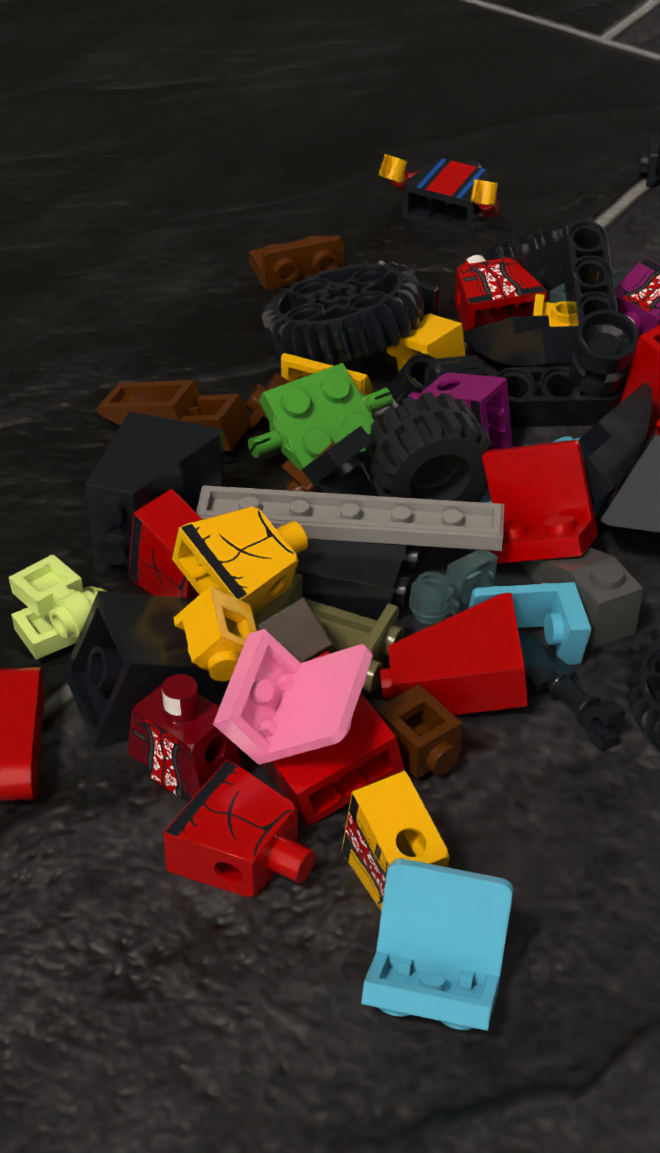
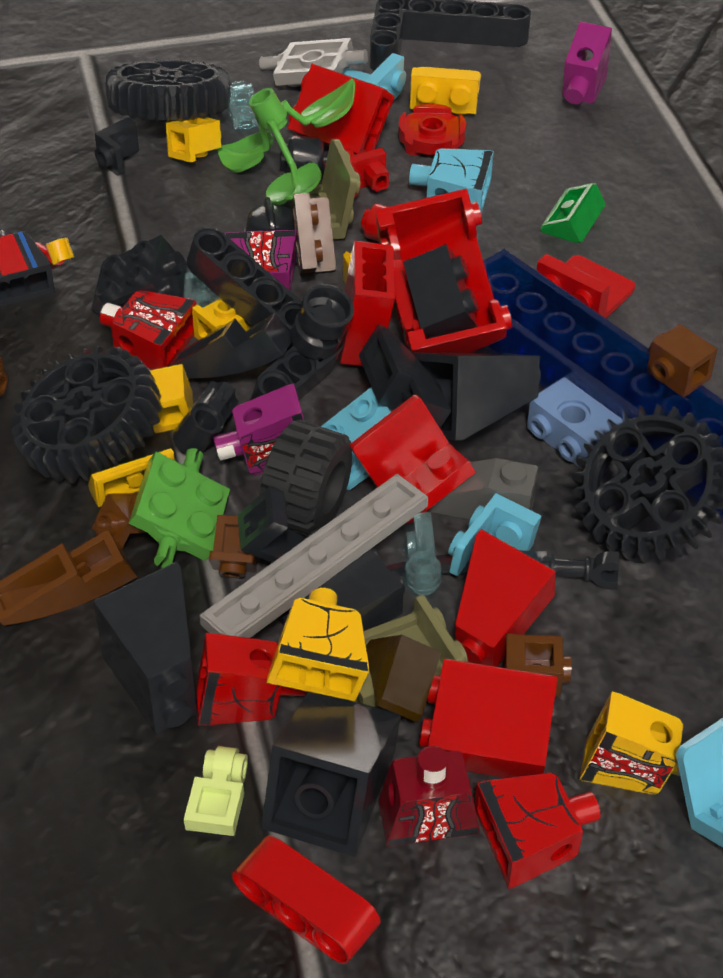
camera: 50 degrees left, 5 degrees up
(55, 590) = (199, 774): yellowish green plate -> none
(216, 631) = (385, 706): yellow brick -> none
(289, 706) = (495, 702): bright pink bracket -> none

